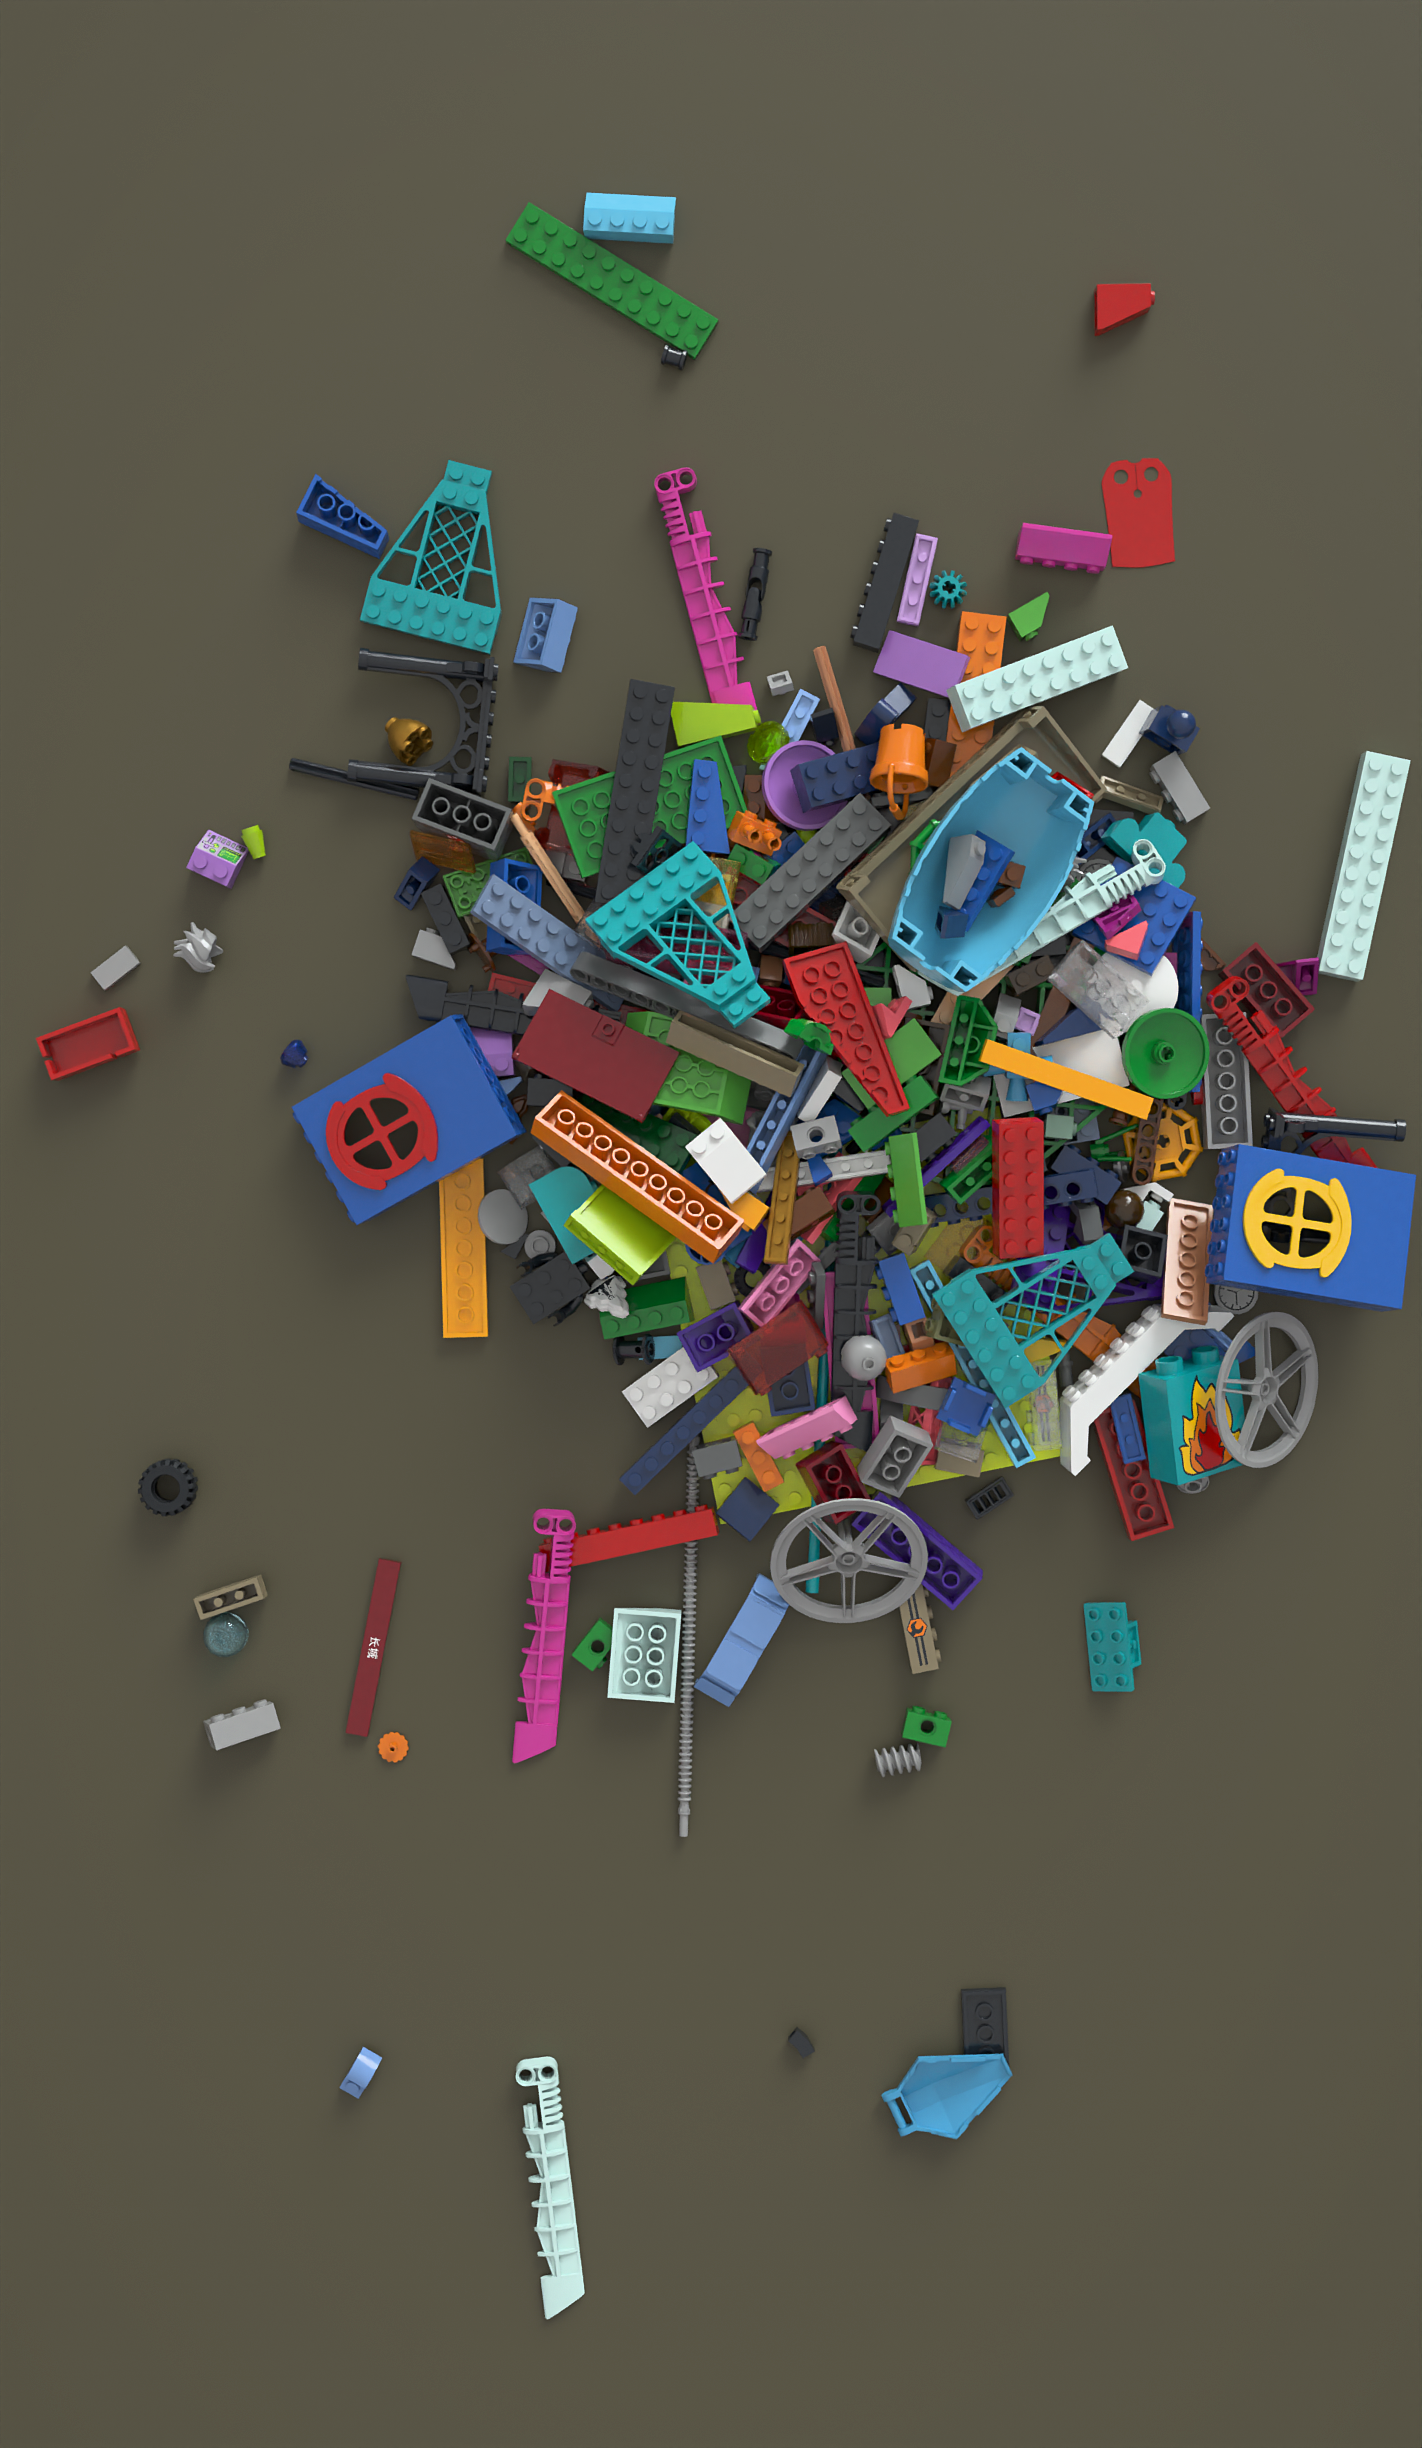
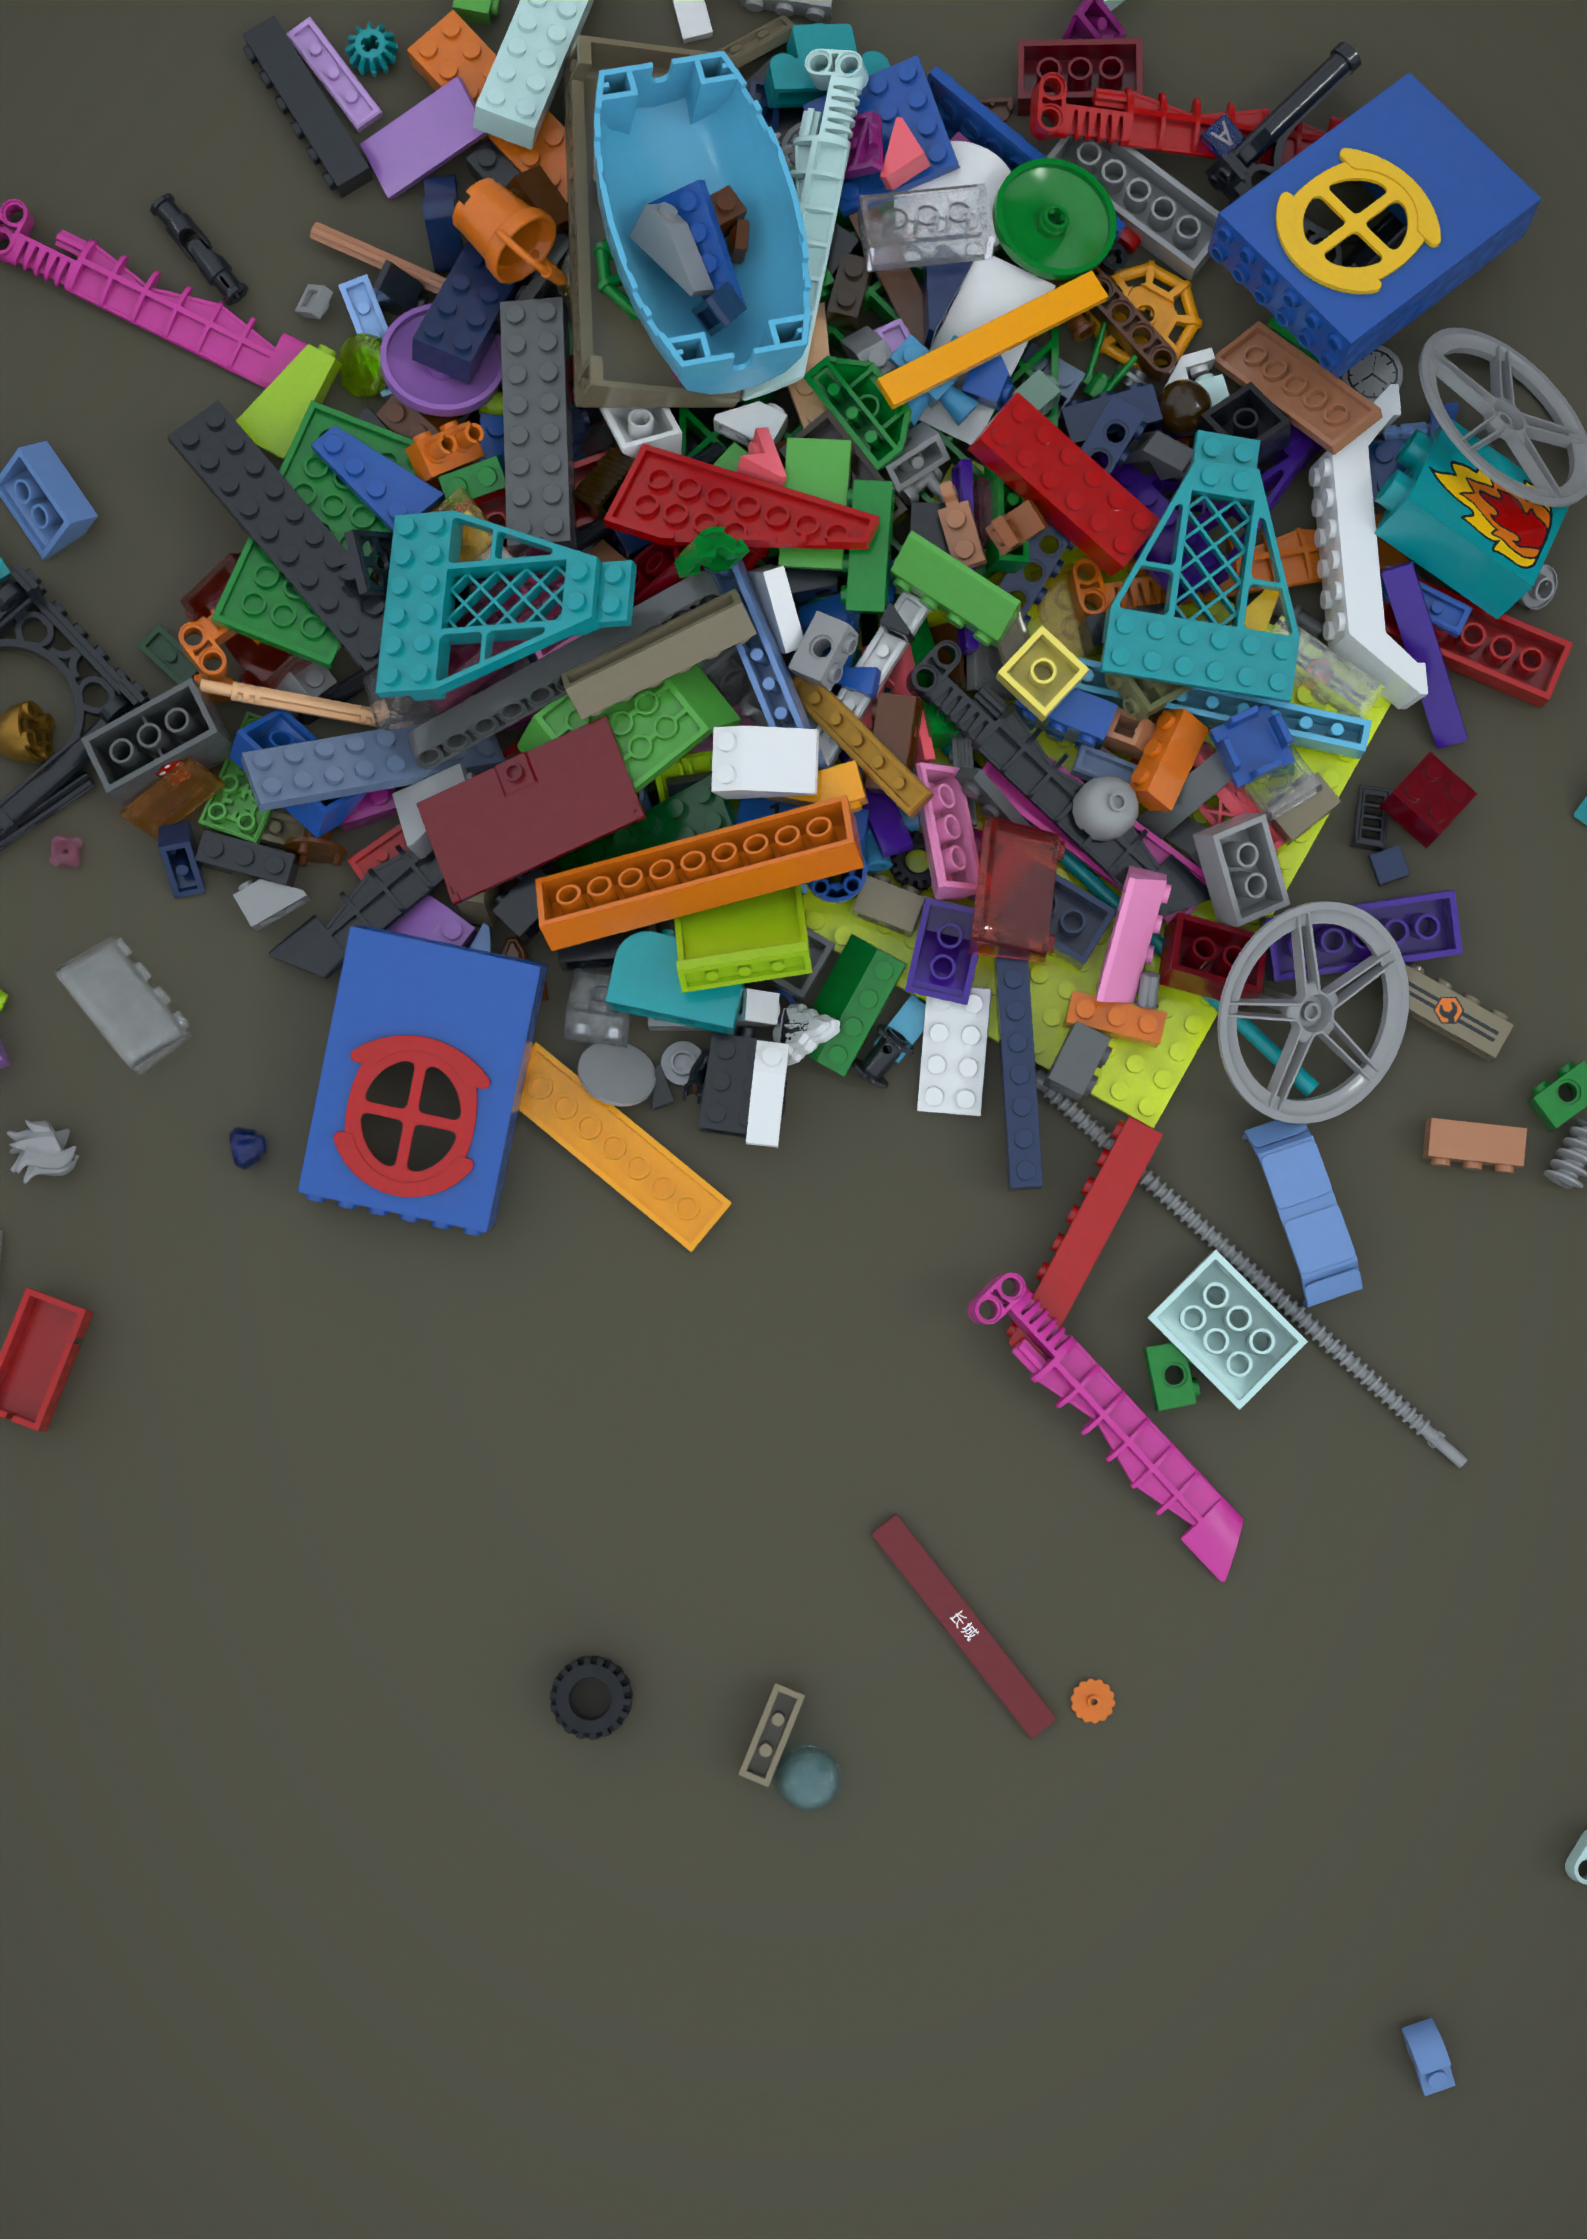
camera: 45 degrees left, 5 degrees down
(241, 1724) = (923, 1846): light grey wedge -> none
(312, 922) = (124, 1004): none -> clear windscreen
(361, 816) = (61, 843): none -> clear pink plate
(555, 1310) = (767, 1093): none -> white slope
(747, 1509) = (1162, 1082): dark blue slope -> none
(787, 1462) = (1148, 990): none -> light grey piece
(857, 1701) = (1474, 1145): none -> nougat brick
(863, 1161) = (895, 626): none -> black slope
(904, 1264) = (1042, 673): none -> light yellow brick
(945, 1153) = (960, 528): none -> nougat plate
(971, 1184) = (1016, 527): none -> dark orange brick
(971, 1528) = (1388, 865): none -> dark blue tile
(1022, 1521) = (1428, 800): none -> dark red brick
(1099, 1453) = (1423, 646): none -> dark purple tile
(1295, 1101) = (1222, 136): none -> clear blue tile

